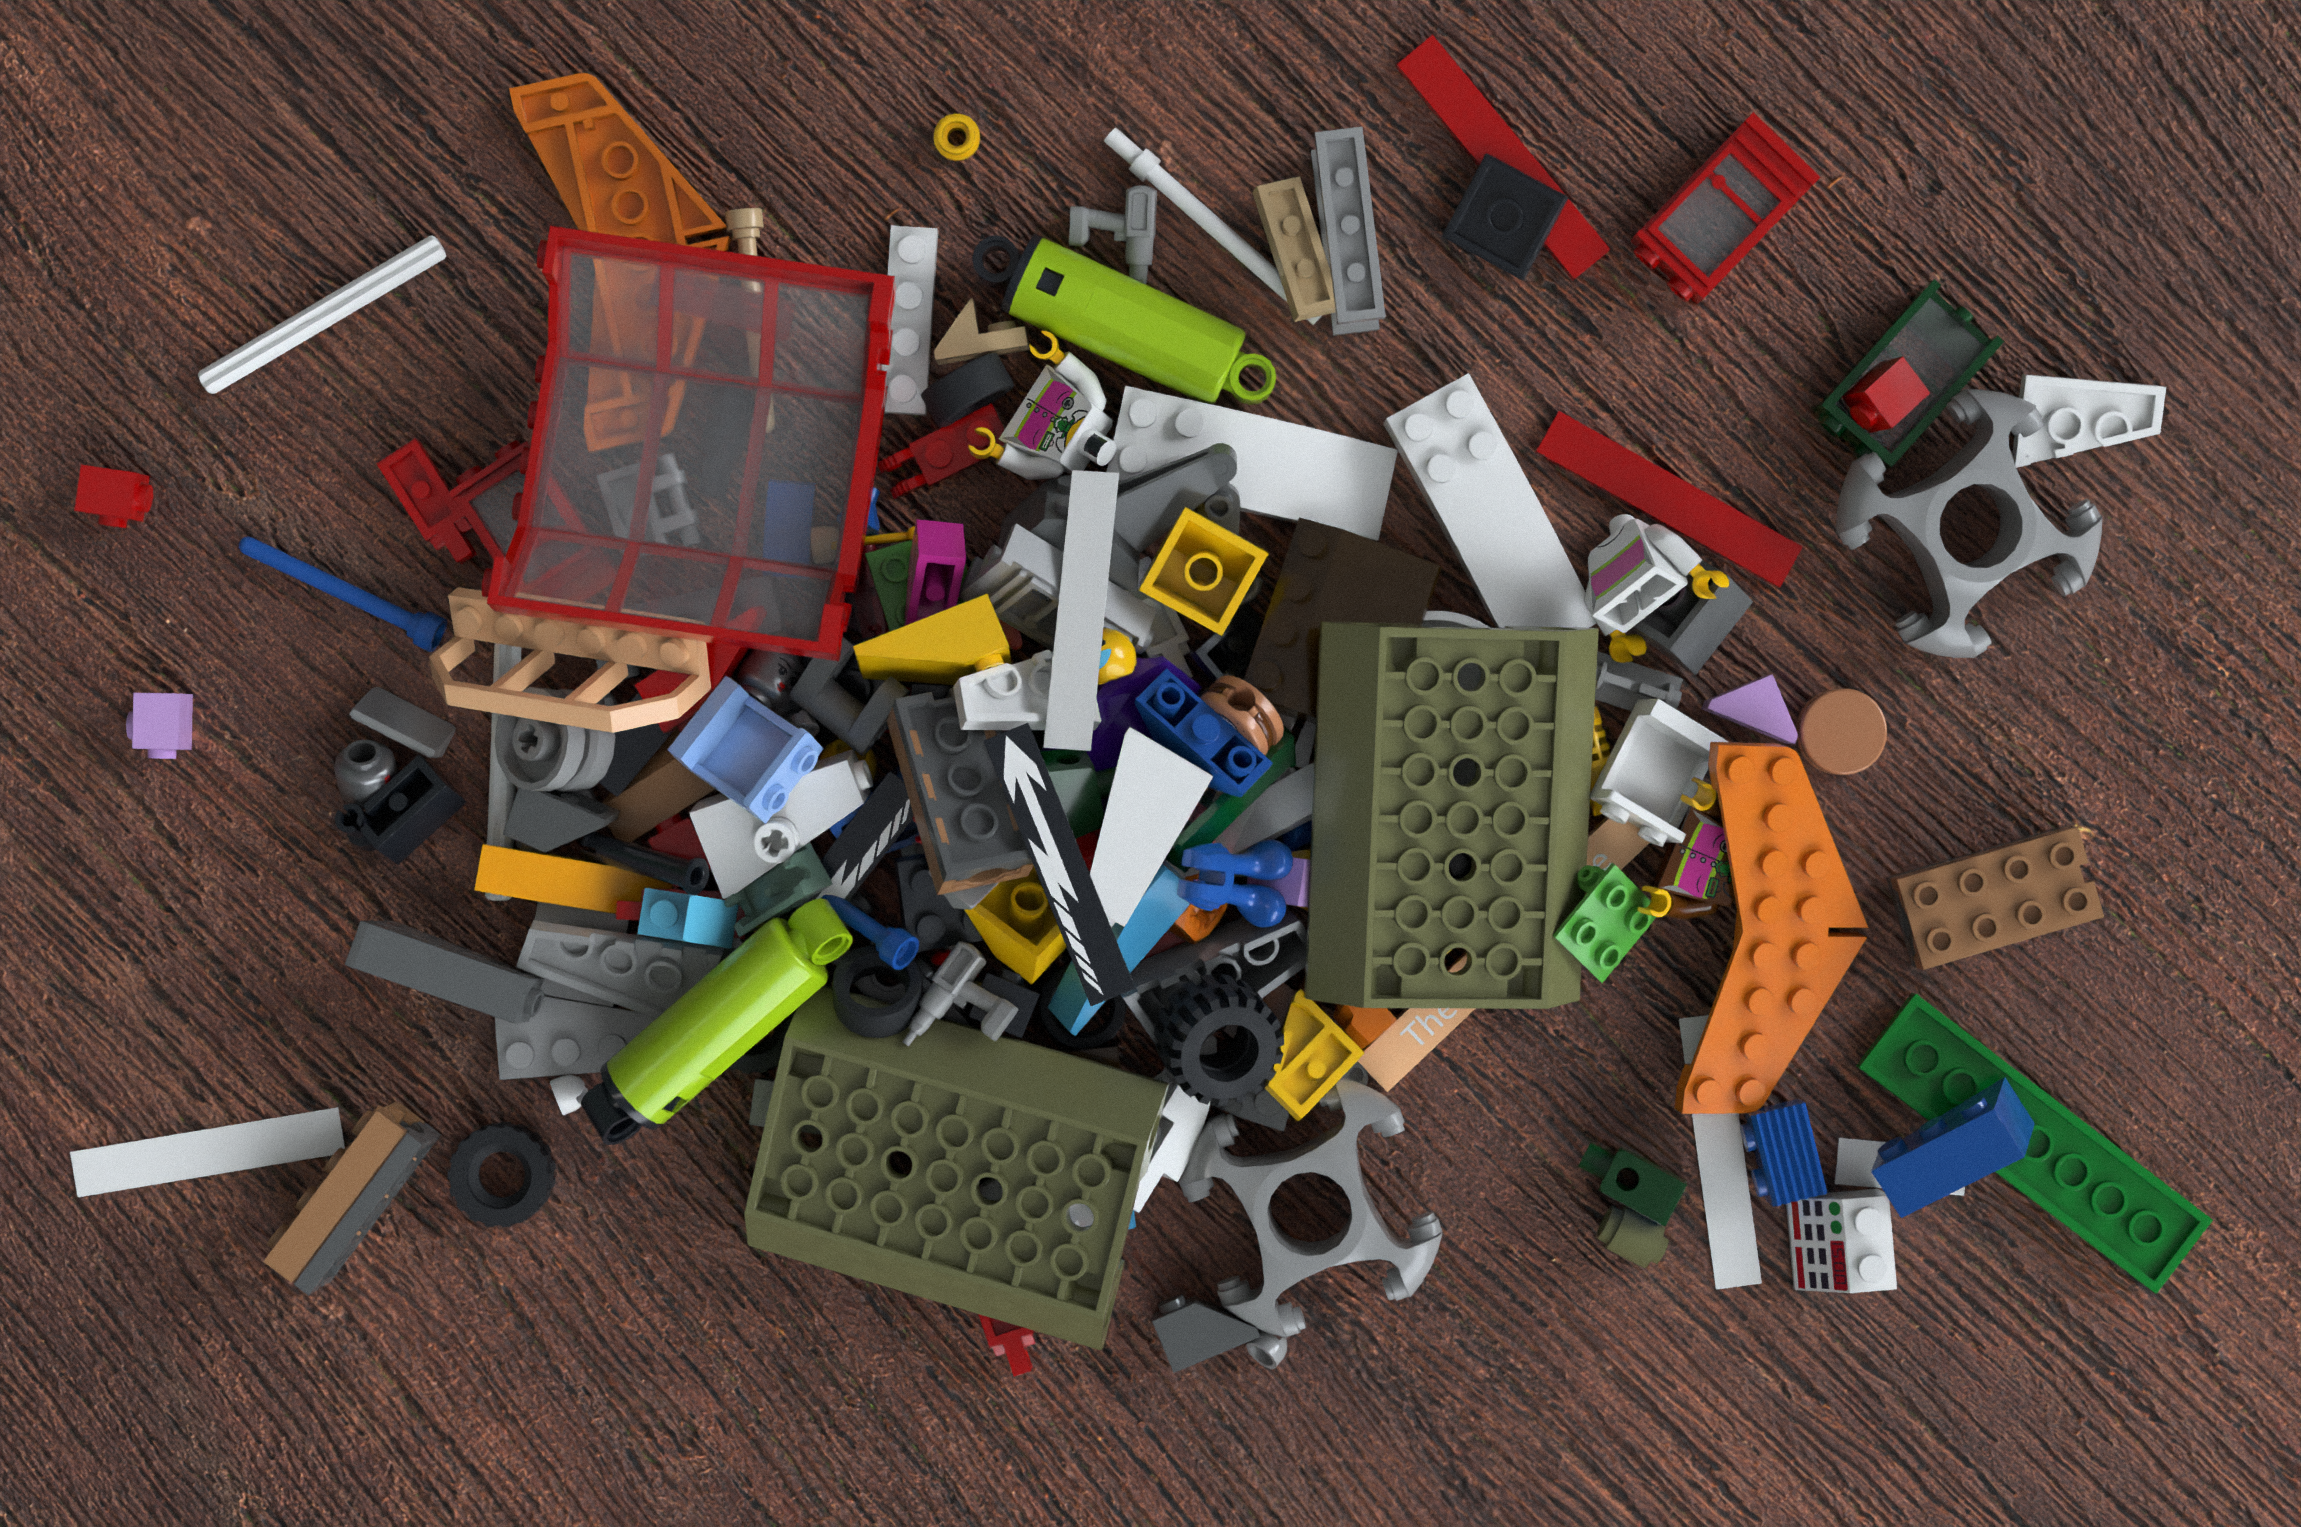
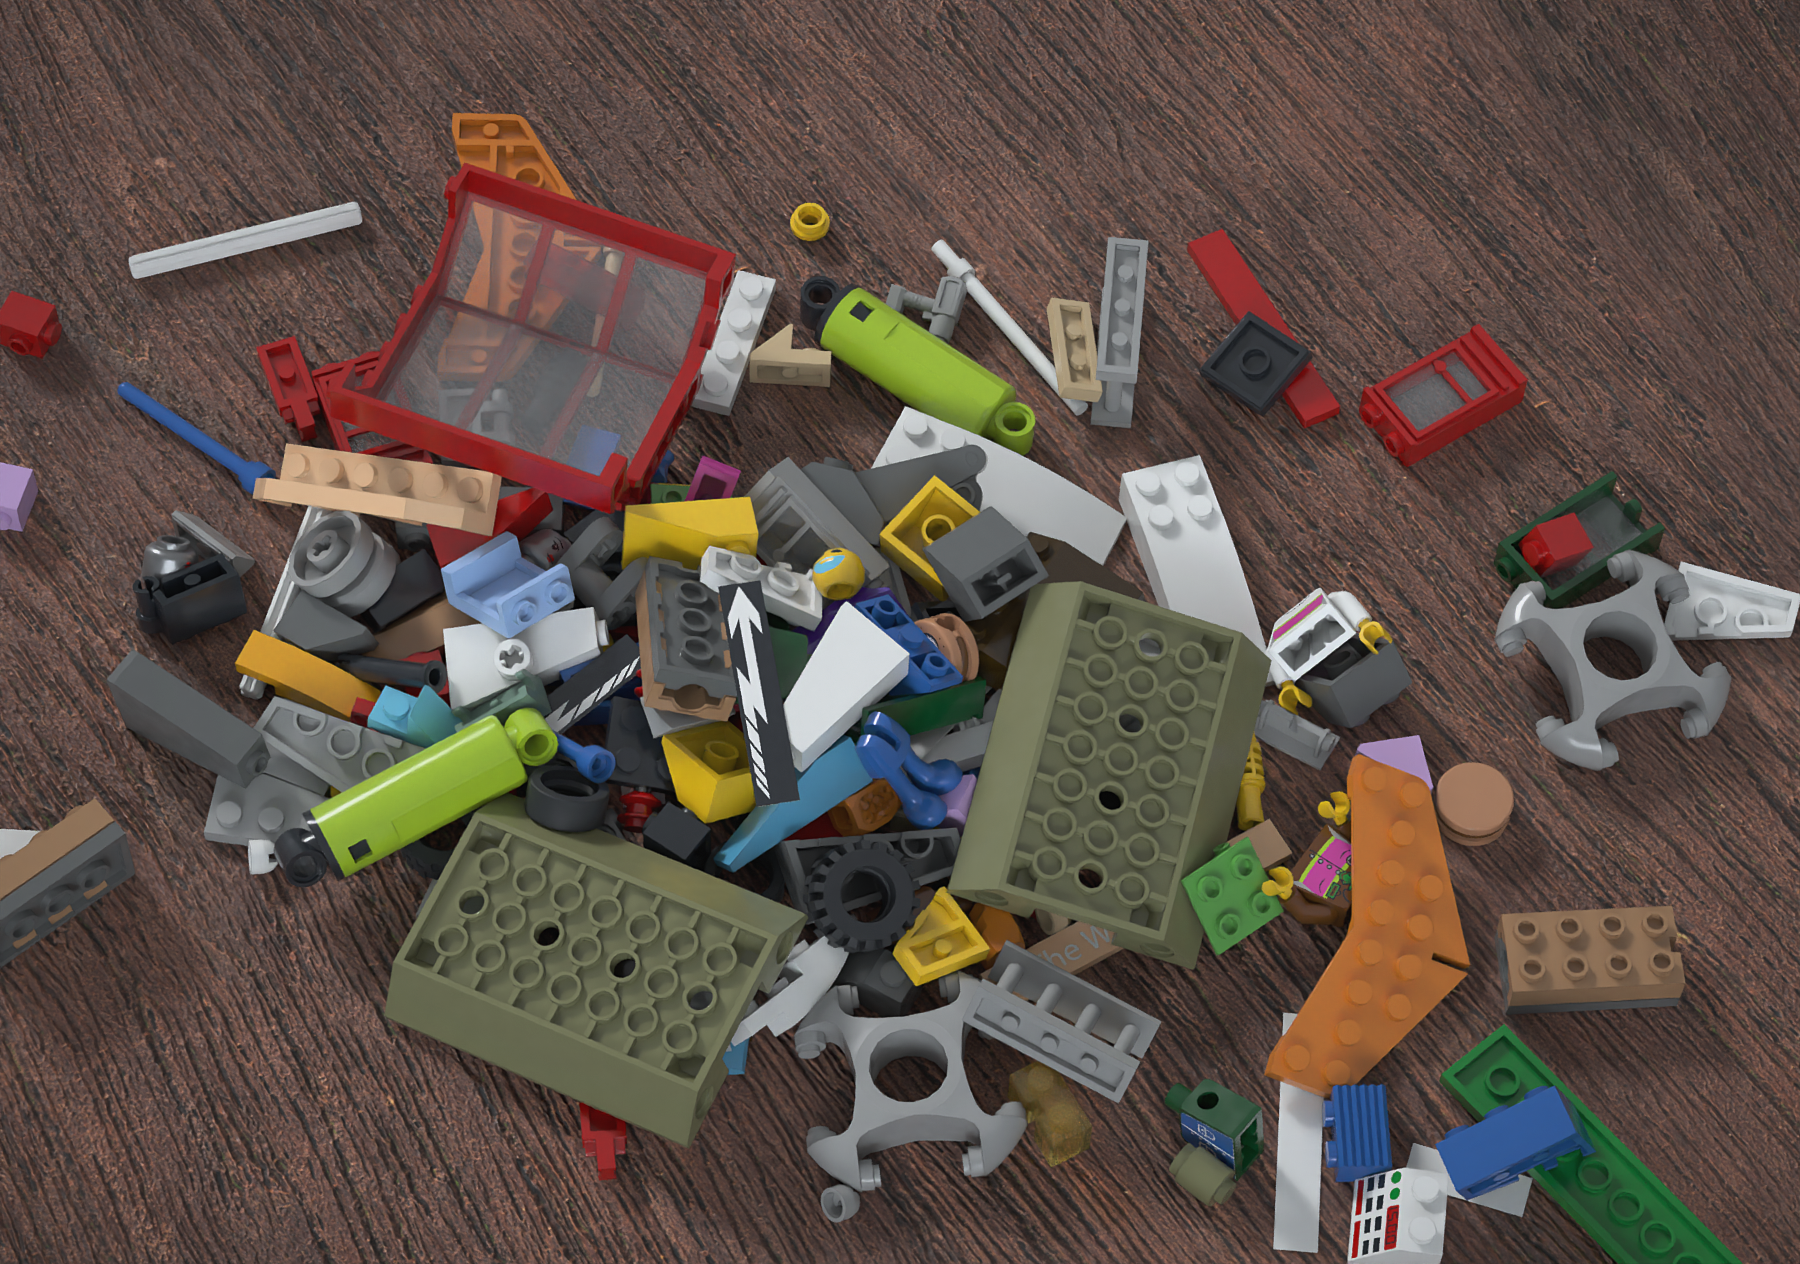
camera: 10 degrees right, 30 degrees down
(466, 1180) = (187, 939): black tyre -> none
(944, 451) = (740, 440): red hinge -> none
(955, 984) = (642, 801): light grey piece -> none
(967, 389) = (776, 402): black tyre -> none
(1056, 424) = (840, 427): white torso -> none
(1081, 610) = (826, 527): white sticker -> none
(1198, 1330) = (782, 1170): dark grey slope -> none
(1267, 615) = (984, 564): none -> dark grey slope
(1447, 1157) = (1052, 1040): none -> light grey fence
(1475, 1218) = (1060, 1122): none -> clear yellow brick
(1652, 770) = (1293, 786): white panel -> none
(1668, 499) = (1314, 569): red tile -> none

